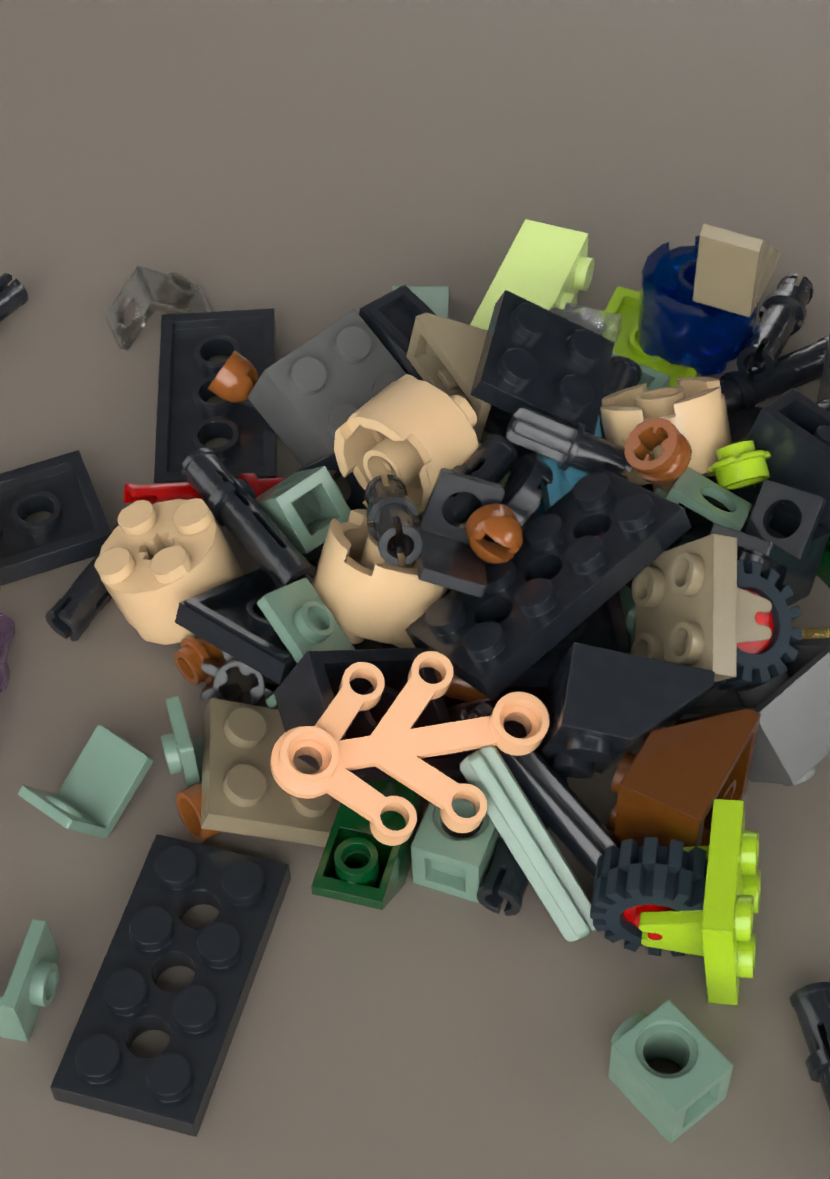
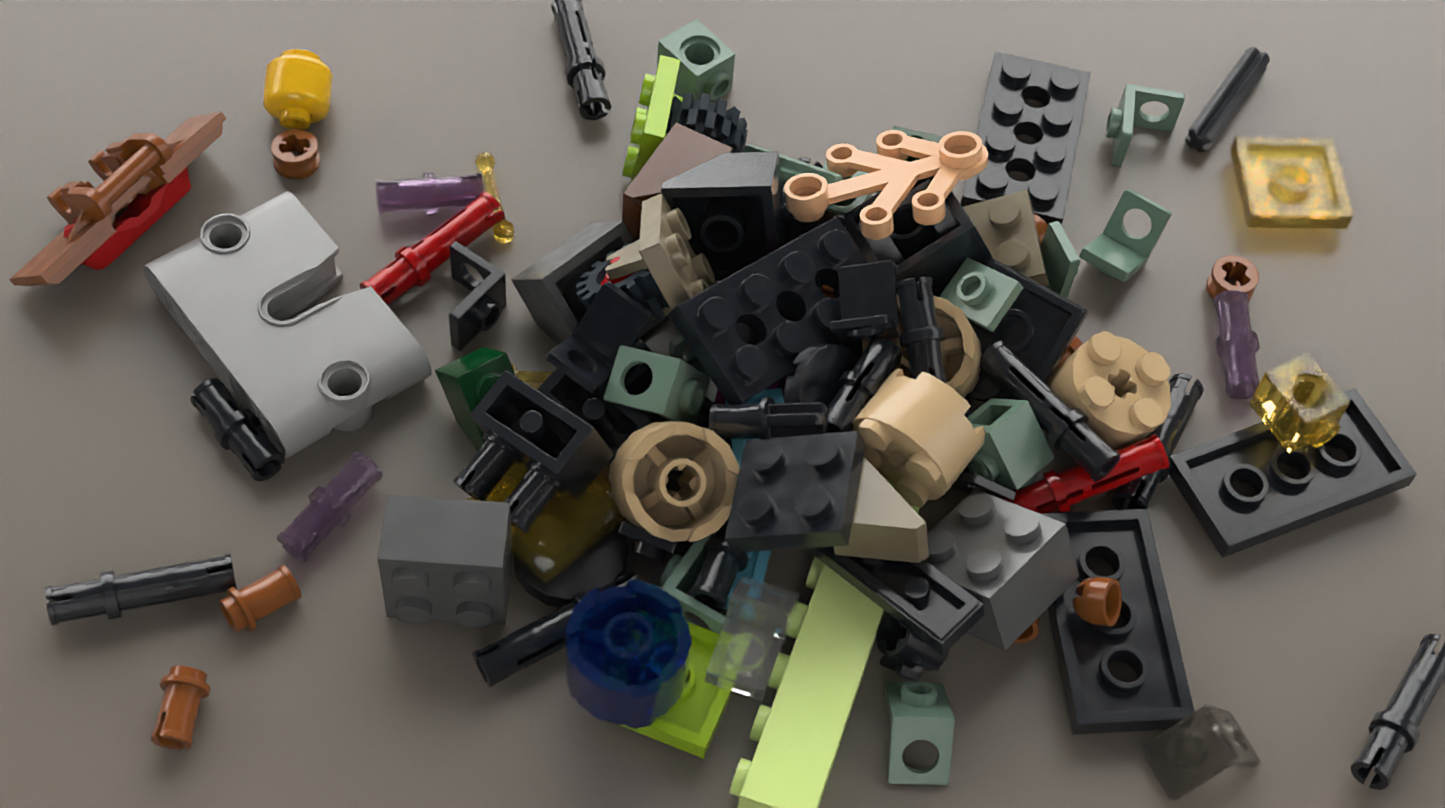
camera: 170 degrees right, 5 degrees up
(501, 525) = (831, 306): dark orange hinge -> none
(670, 463) = (691, 393): dark orange bush -> none
(732, 270) = (595, 604): dark tan slope -> none
(740, 465) = (609, 408): lime plate -> none
(779, 317) = (536, 686): black pin -> none

